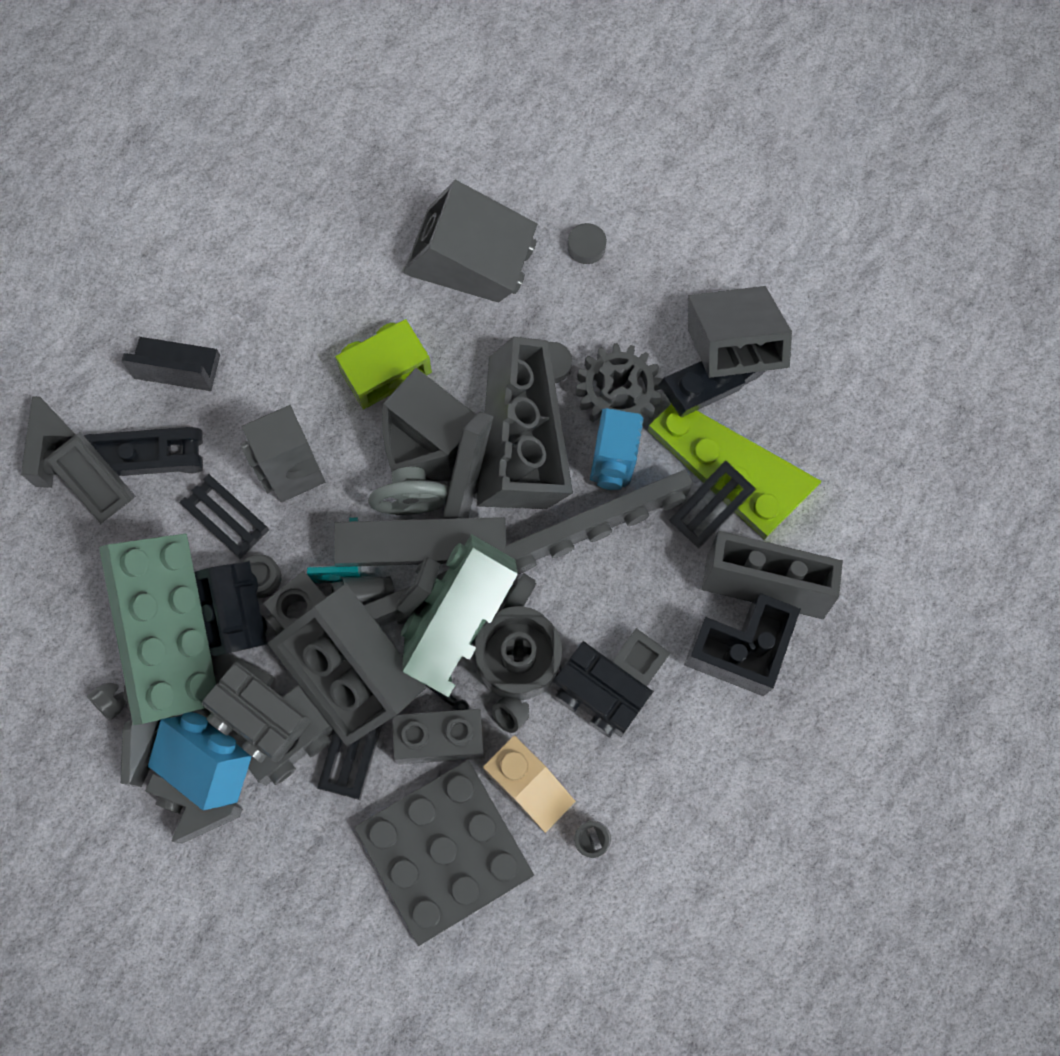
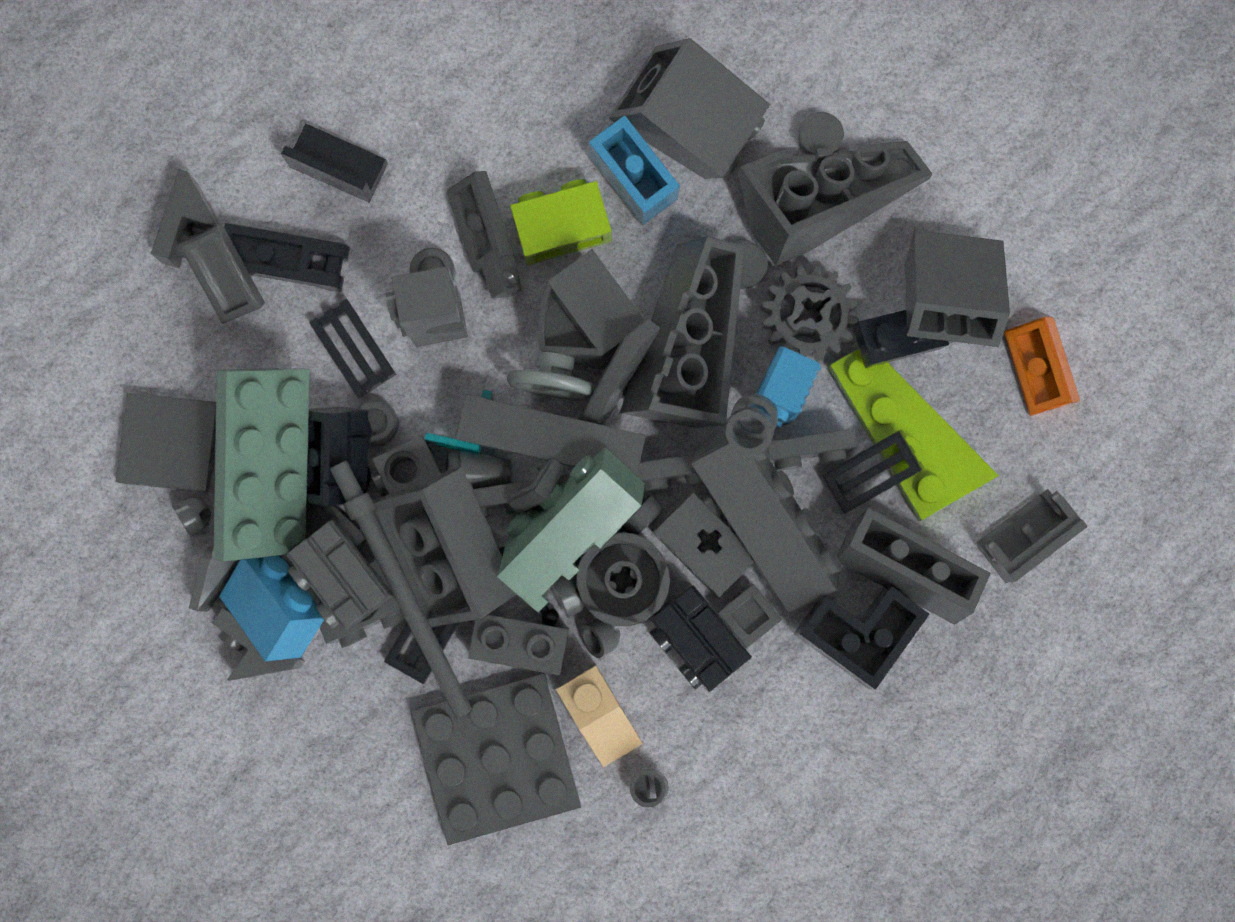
camera: 15 degrees right, 10 degrees up
(70, 642) = (167, 442): none -> dark grey tile
(261, 647) = (361, 507): none -> dark grey bar
(319, 389) = (484, 234): none -> dark grey hinge
(435, 304) = (633, 170): none -> dark azure brick
(470, 681) = (567, 596): none -> dark grey tile
(595, 293) = (815, 196): none -> dark grey wedge
(596, 623) = (680, 536): none -> dark grey brick
(628, 557) = (763, 508): none -> dark grey hinge
(828, 383) = (1041, 365): none -> orange slope
(865, 524) = (1030, 535): none -> dark grey hinge

